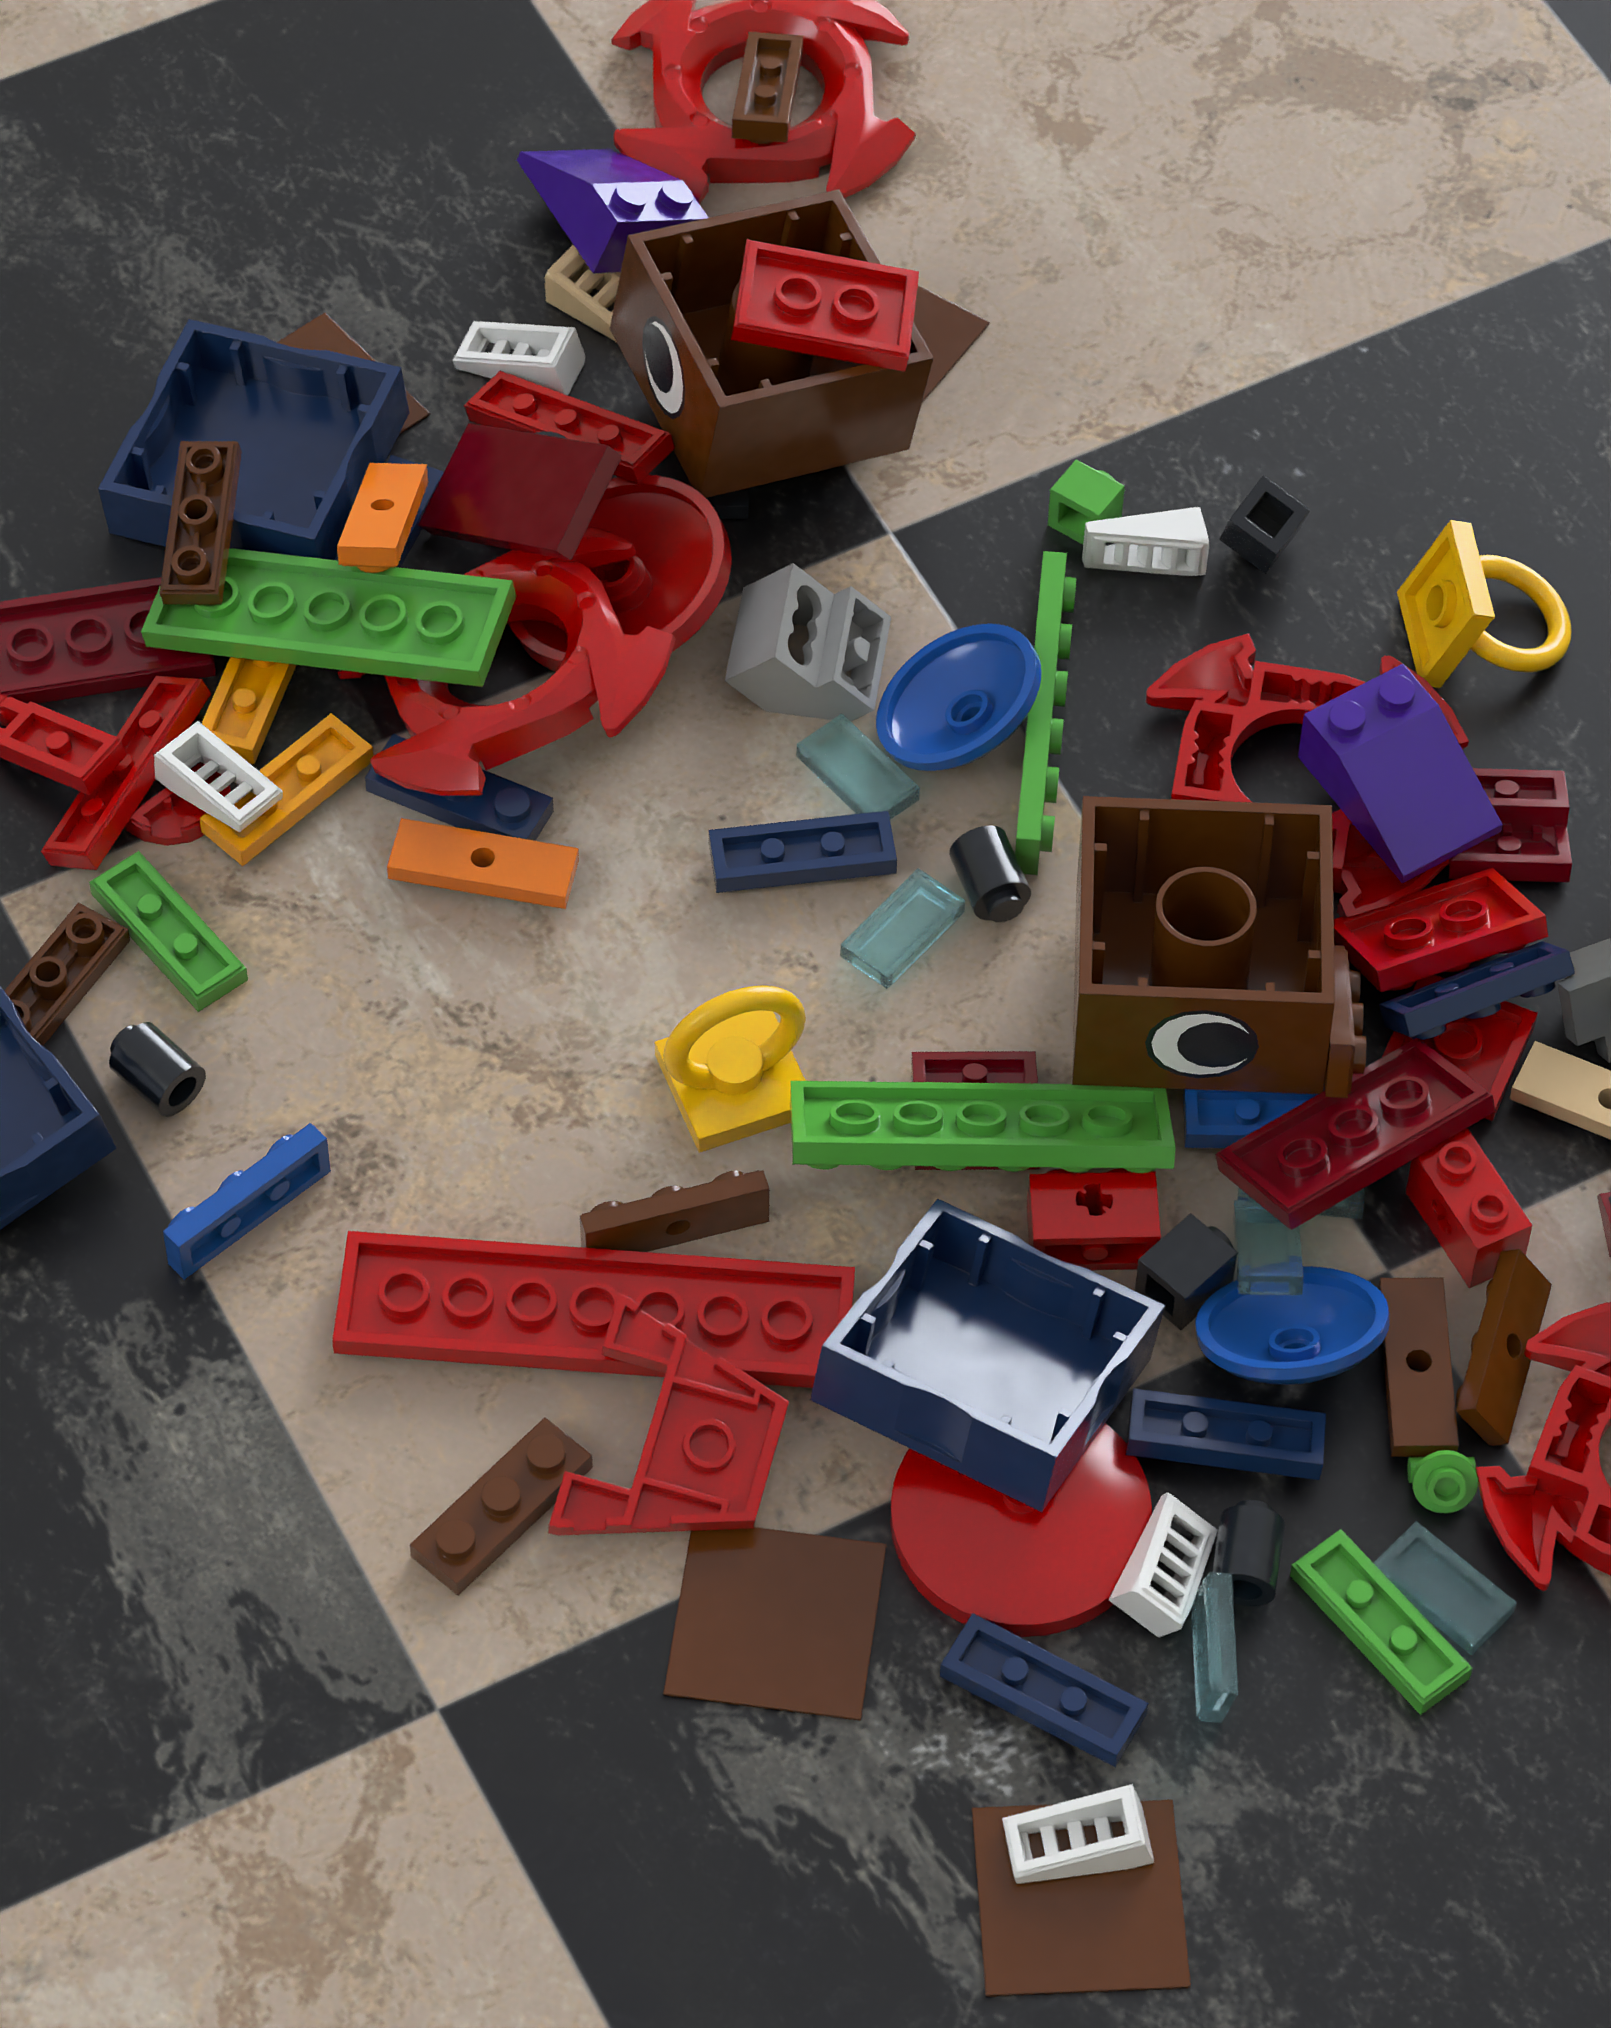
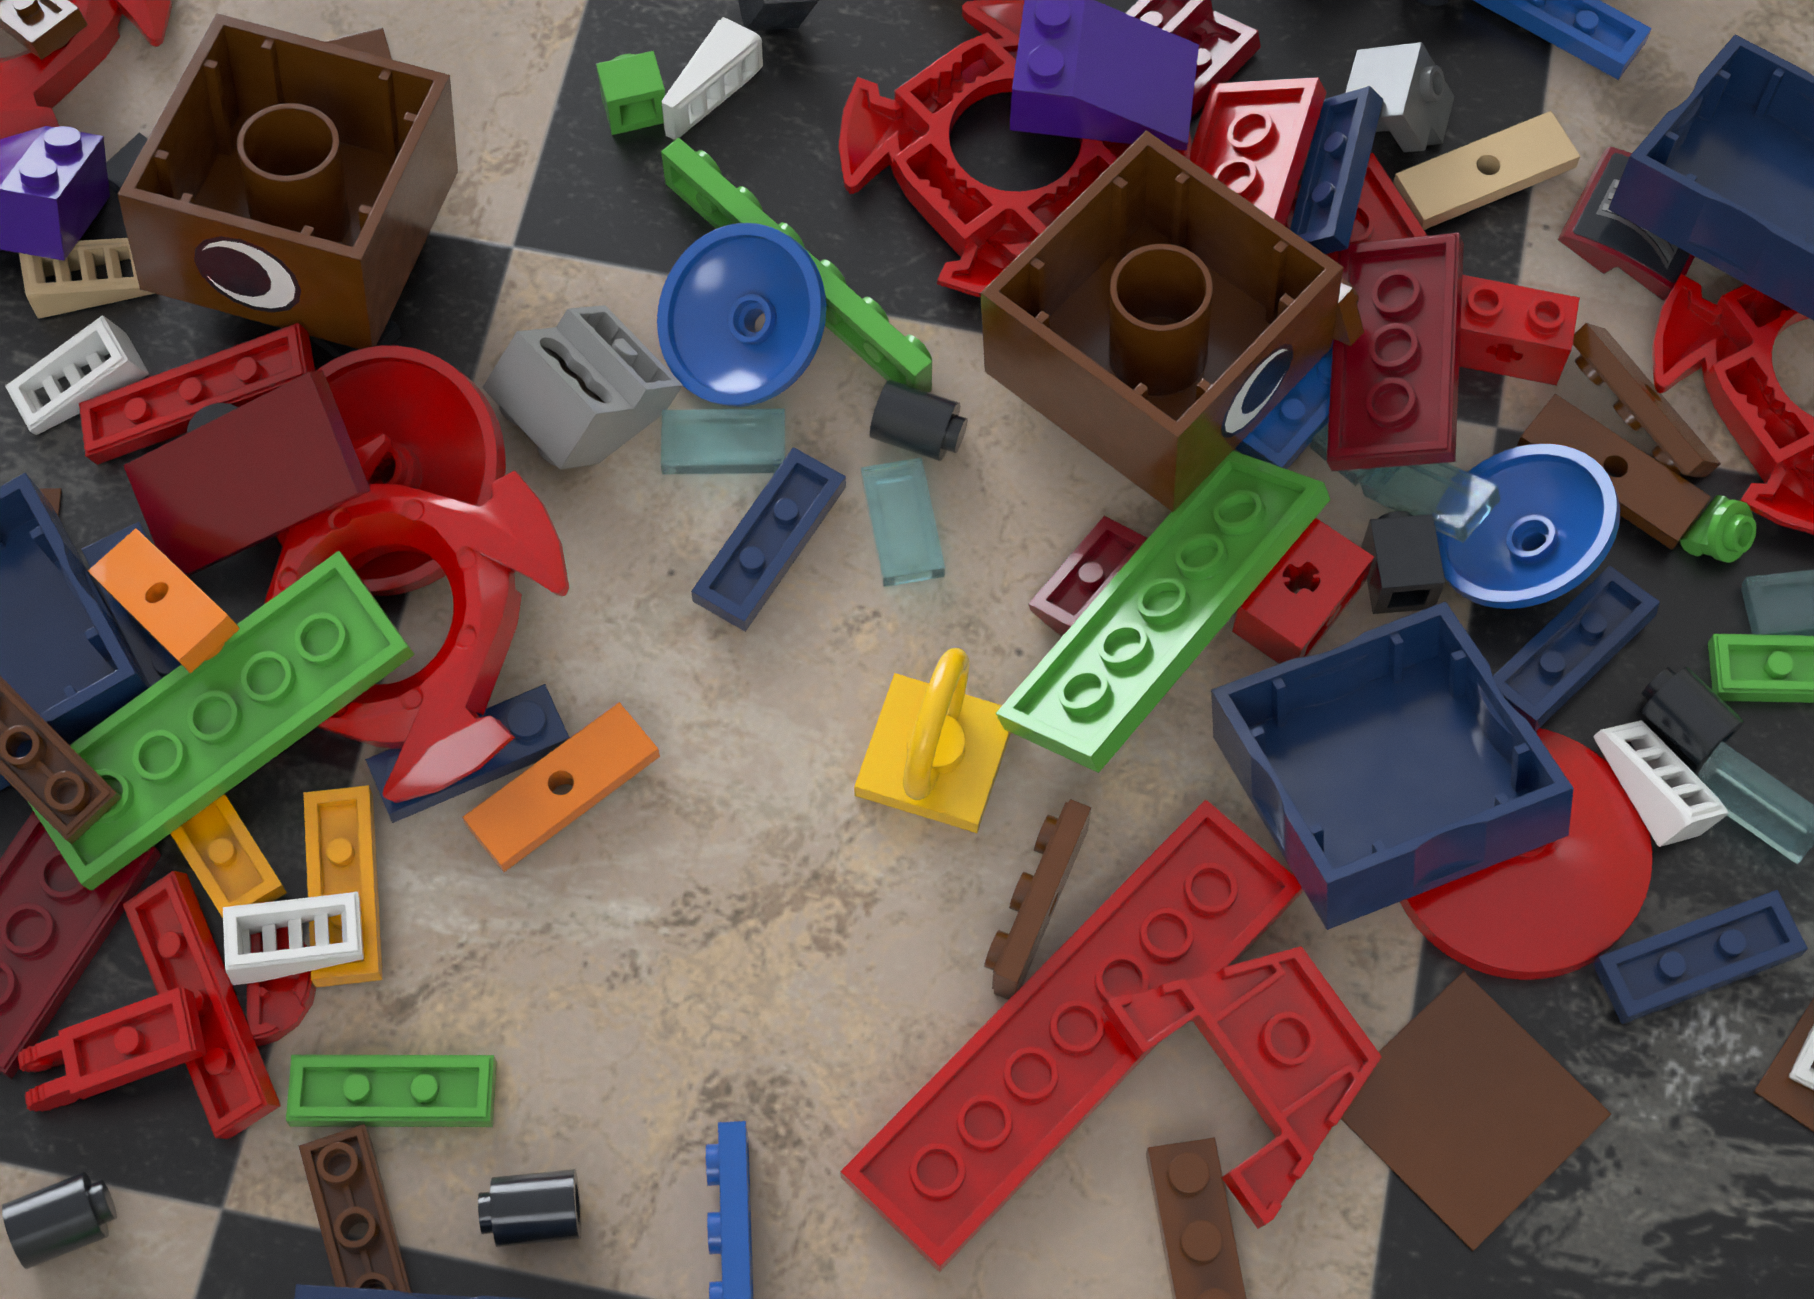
camera: 50 degrees left, 10 degrees up
(825, 305) = (330, 108): red tile -> none

